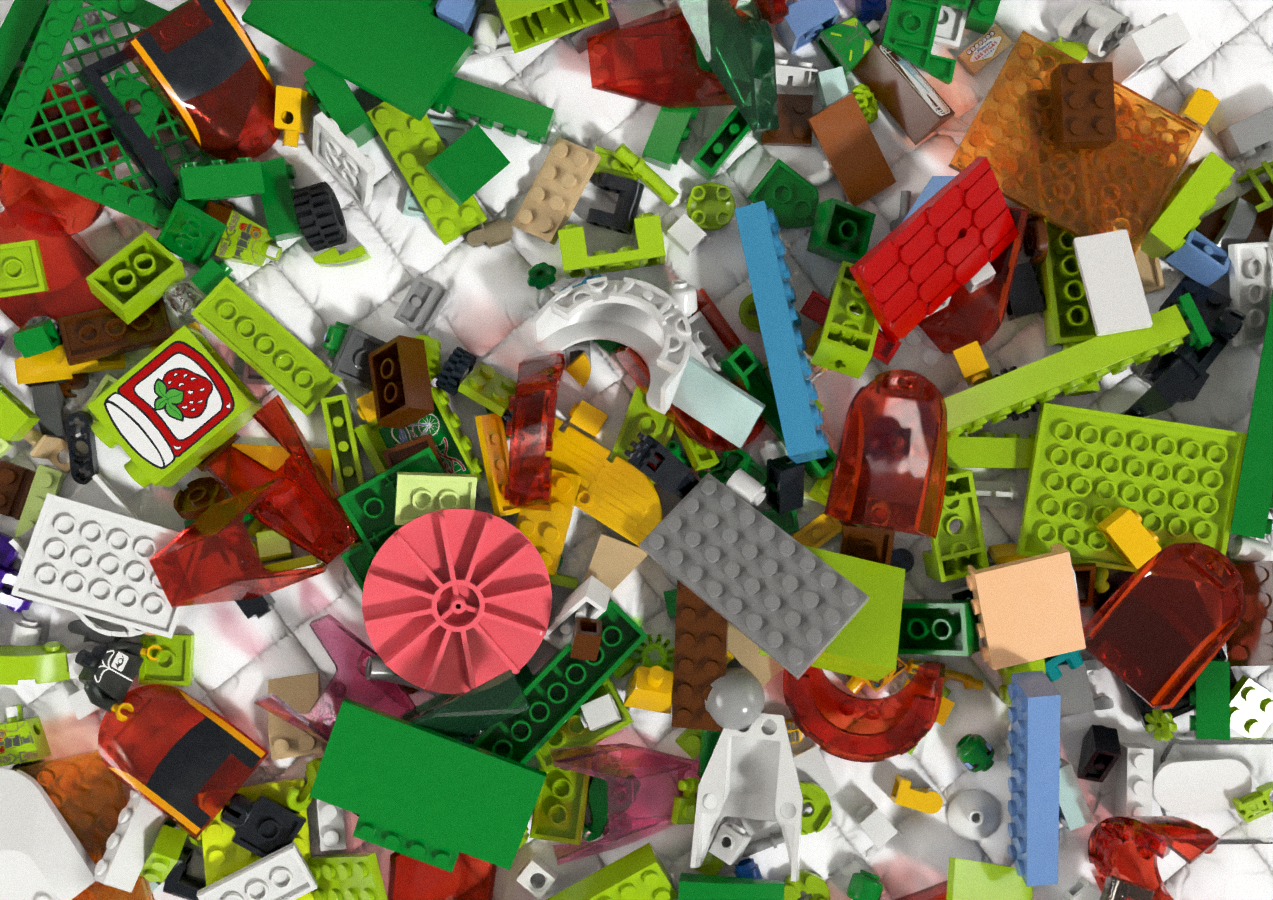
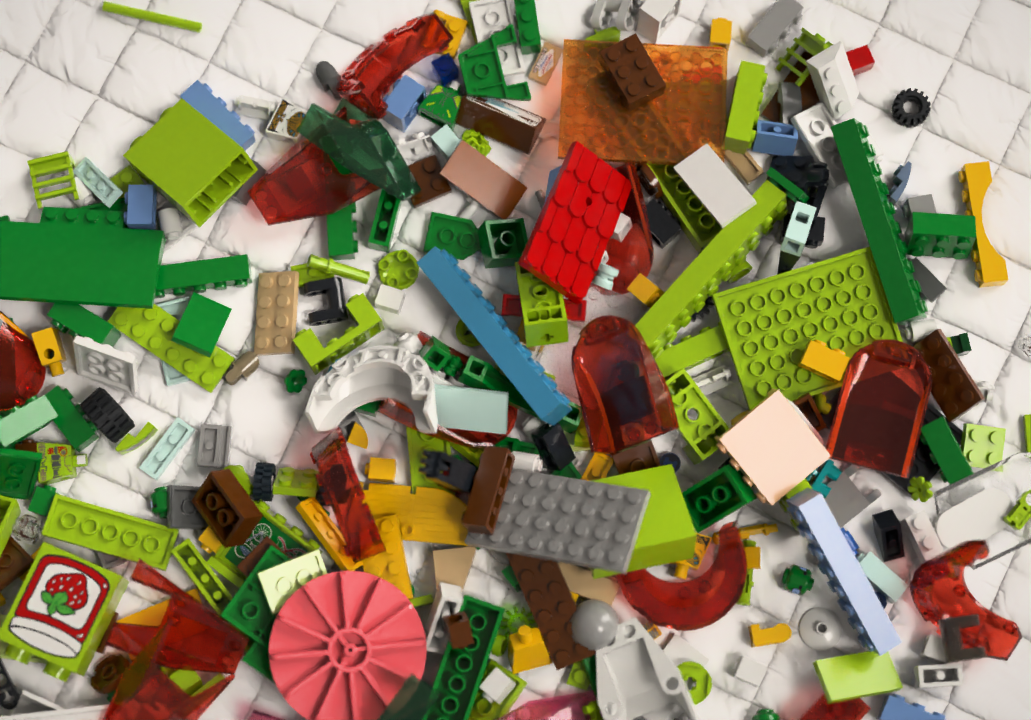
camera: 25 degrees left, 10 degrees down
(370, 283) = (167, 449): none -> light aqua plate
(691, 502) = (488, 490): none -> reddish brown brick
(708, 326) = (438, 355): none -> green brick
(935, 324) = (605, 276): none -> light aqua wheel
(1181, 378) = (798, 228): none -> light aqua brick

